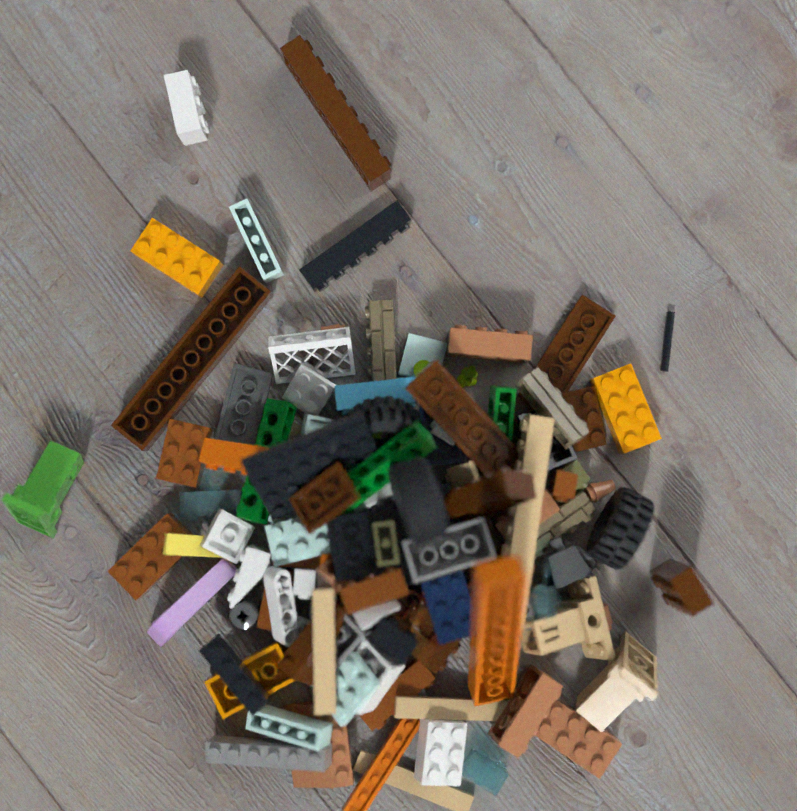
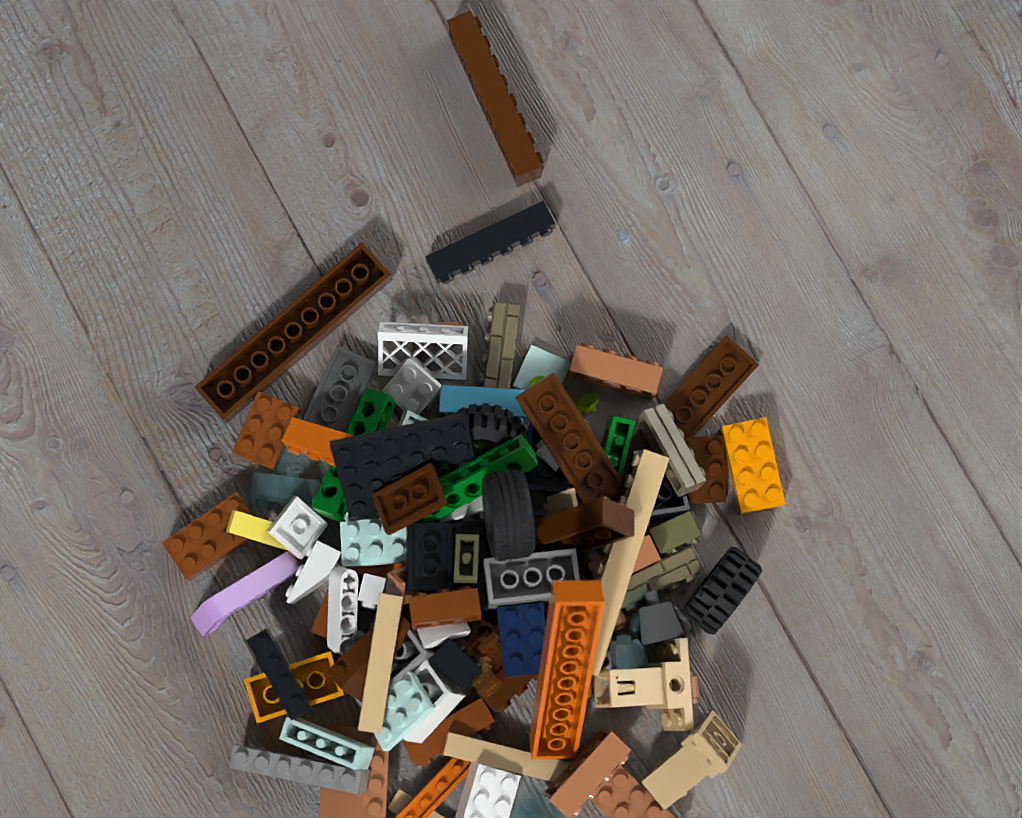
camera: 15 degrees right, 5 degrees down
(40, 498) = (101, 455): bright green brick -> none
(177, 257) = (296, 222): light orange brick -> none
(186, 107) = (336, 65): white brick -> none
(239, 618) = (299, 606): dark grey piece -> none
(256, 241) = (385, 218): light aqua brick -> none
(562, 485) = (667, 533): dark orange brick -> none
(599, 490) = (709, 550): nougat cone -> none
(667, 341) = (811, 404): black bar -> none
(681, 587) = (777, 665): reddish brown brick -> none

